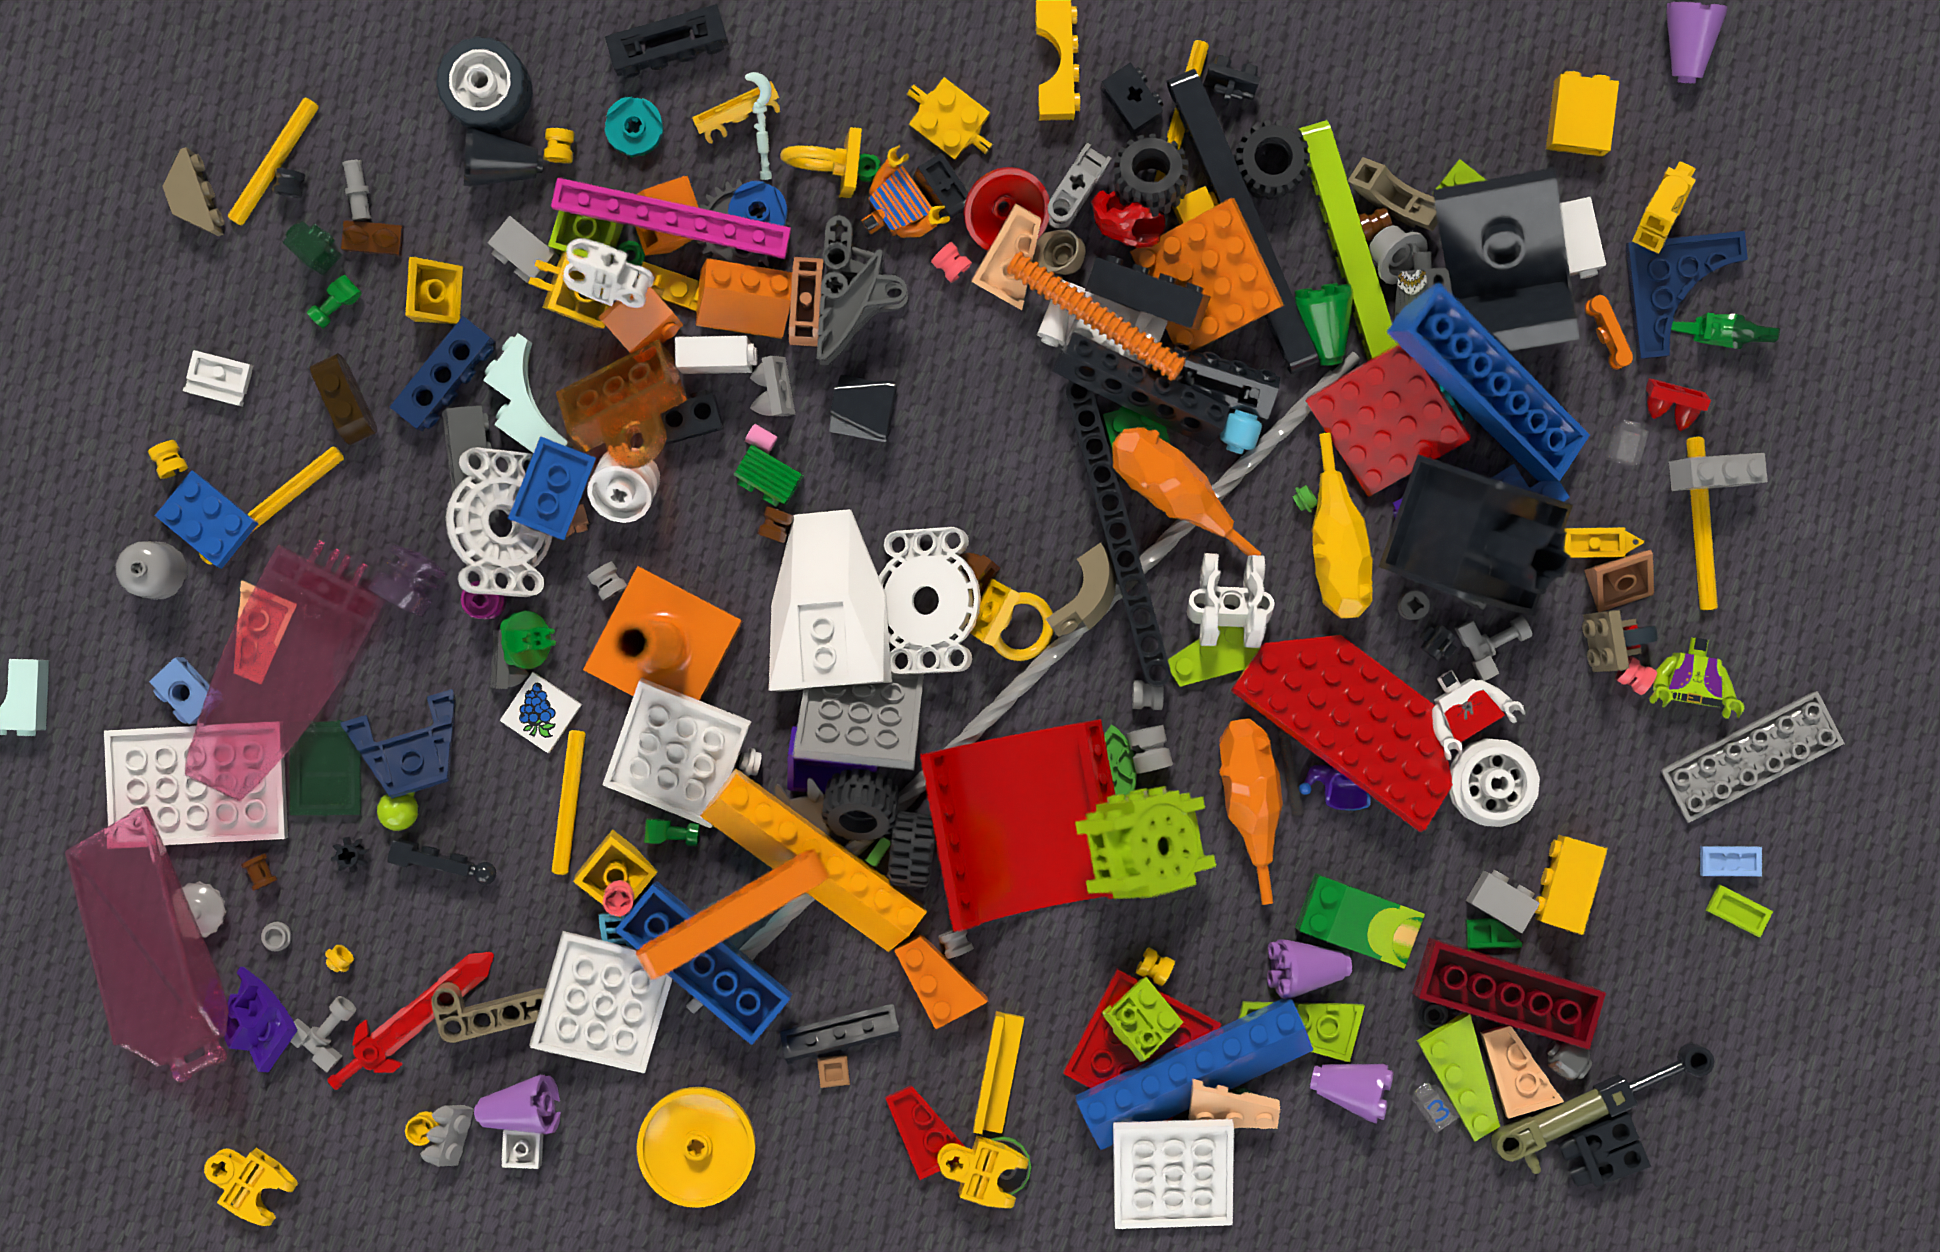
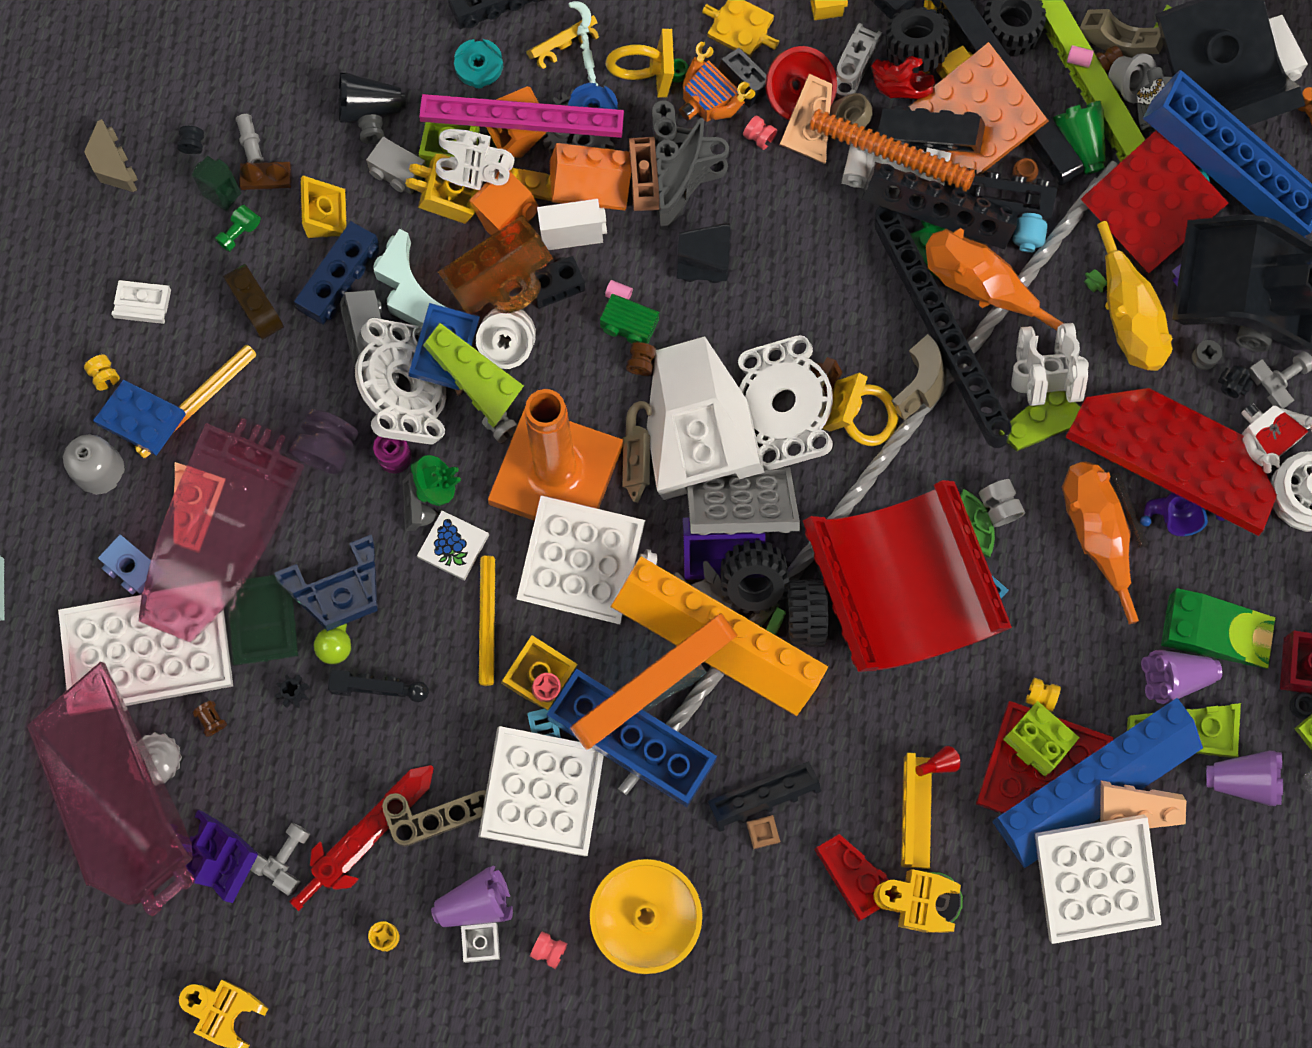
camera: 10 degrees left, 15 degrees down
(273, 160) = (171, 133): yellow axle -> none
(276, 936) = (229, 776): light grey plate -> none
(336, 961) = (289, 788): yellow plate -> none
(448, 1136) = (409, 939): light grey plate -> none
(472, 66) = (350, 40): wheel -> none
(499, 197) = (371, 128): none -> dark grey wheel
(559, 145) = (417, 83): yellow wheel -> none
(586, 532) = (482, 380): none -> lime wing
(592, 1165) = (548, 950): none -> coral wheel
(660, 830) = (573, 633): green leg -> none
(755, 635) = (636, 453): none -> dark tan plate
(778, 397) = (629, 257): light grey tile -> none
(938, 983) = (847, 733): orange wedge -> none
(955, 943) = (857, 696): light grey wheel -> none
(1035, 1025) = (942, 762): none -> red cone
(1145, 843) = (1017, 574): lime piece -> none
(1146, 695) = (990, 459): light grey wheel -> none
(1252, 350) = (1027, 168): none -> dark orange plate
(1339, 221) = (1080, 56): none -> bright pink hinge

